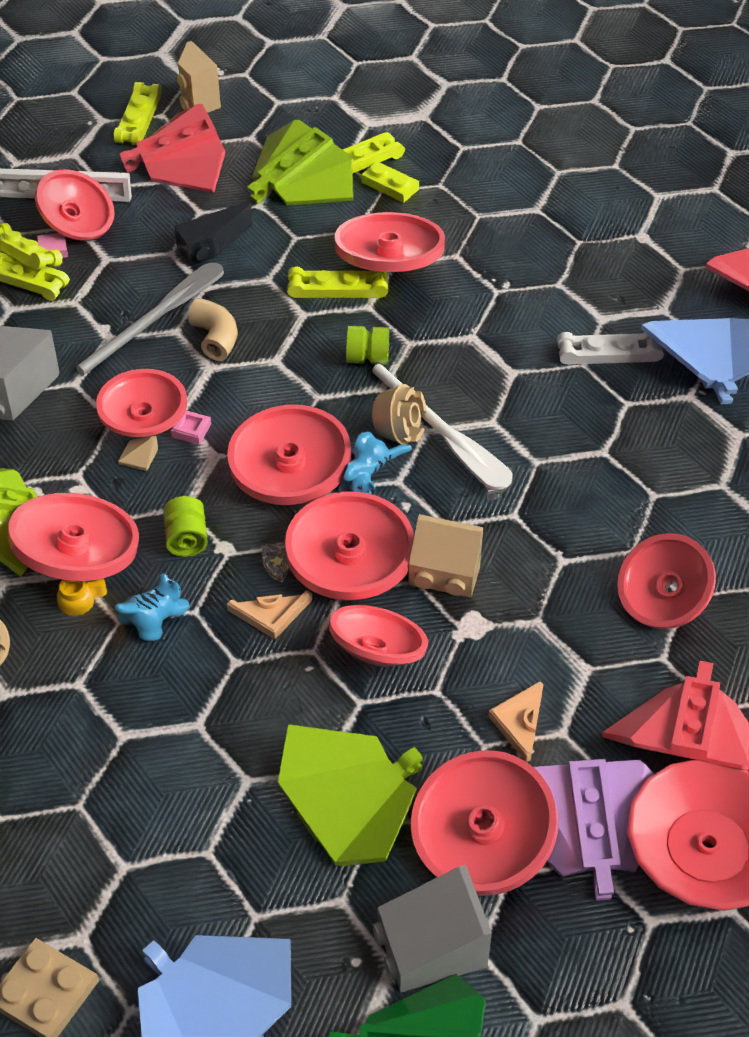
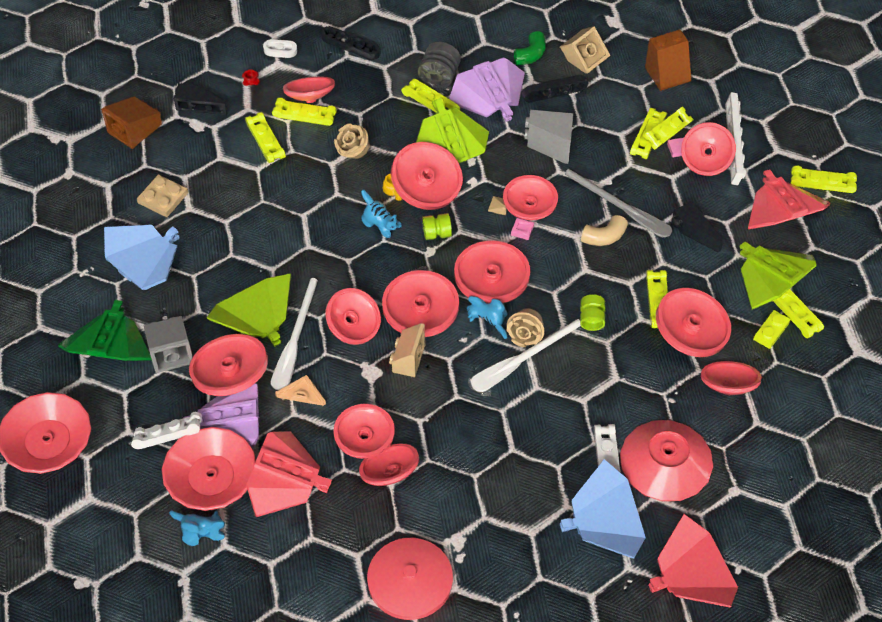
camera: 90 degrees right, 5 degrees up
(198, 79) = (854, 203): tan slope -> none
(270, 613) = (379, 272): light nougat tile -> none
(442, 741) = (286, 362): none -> white piece
(481, 212) = (731, 377): none -> coral dish
(604, 293) = (662, 474): none -> coral dish
(610, 603) = (360, 422): none -> coral dish
(638, 914) = (166, 432): none -> white plate

